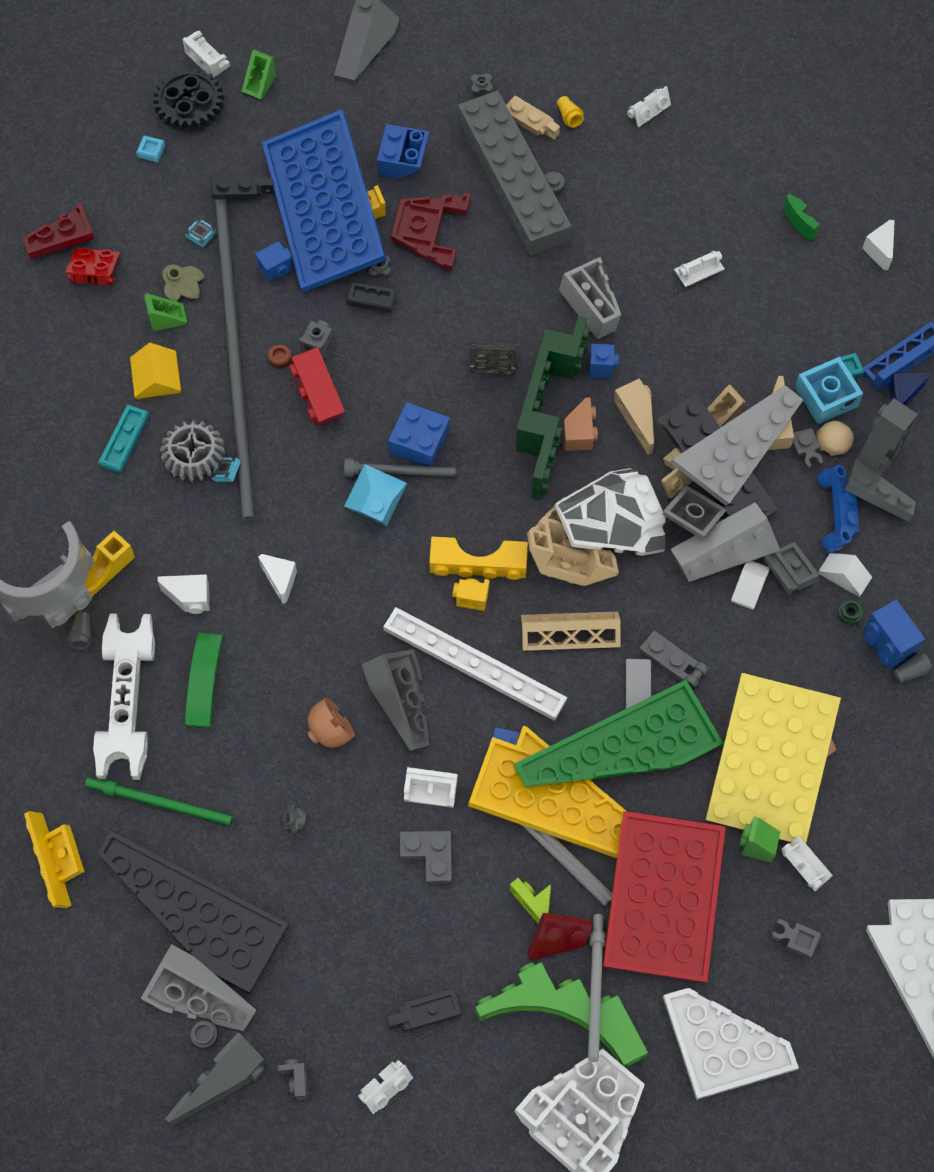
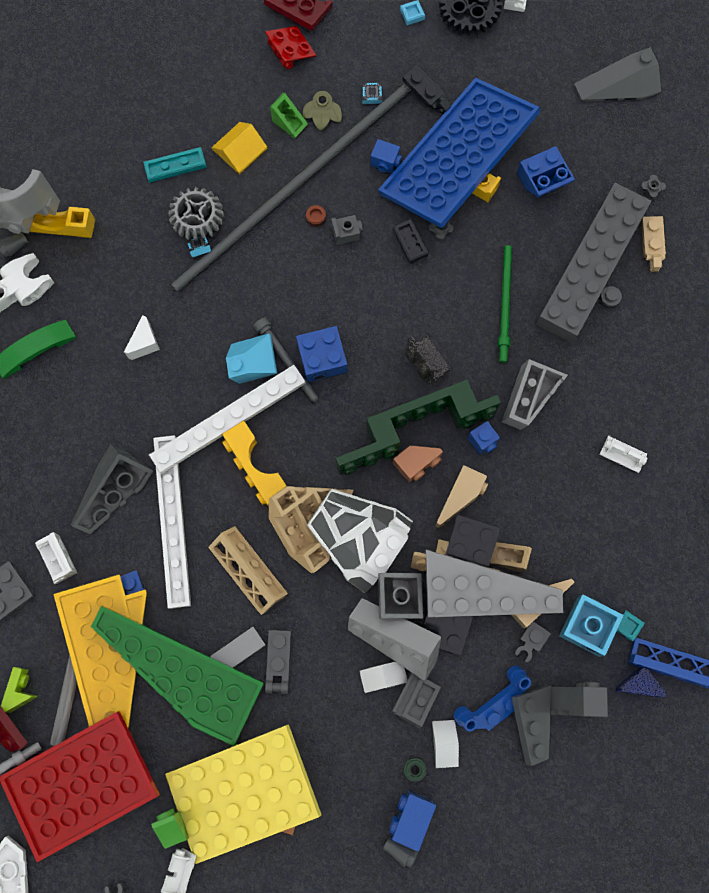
camera: 55 degrees right, 10 degrees up
(187, 591) = (86, 291): white slope -> none
(259, 74) = (528, 35): bright green slope -> none
(316, 387) = (304, 257): red wedge -> none
(328, 725) = (52, 456): nougat cylinder -> none
(417, 552) = (225, 419): none -> white plate
(419, 224) = (497, 229): dark red wing -> none
(471, 594) = (224, 480): yellow brick -> none
(525, 288) = (504, 340): none -> green bar
(571, 114) = (681, 266): yellow cone -> none
(835, 438) = (556, 657): tan hair -> none

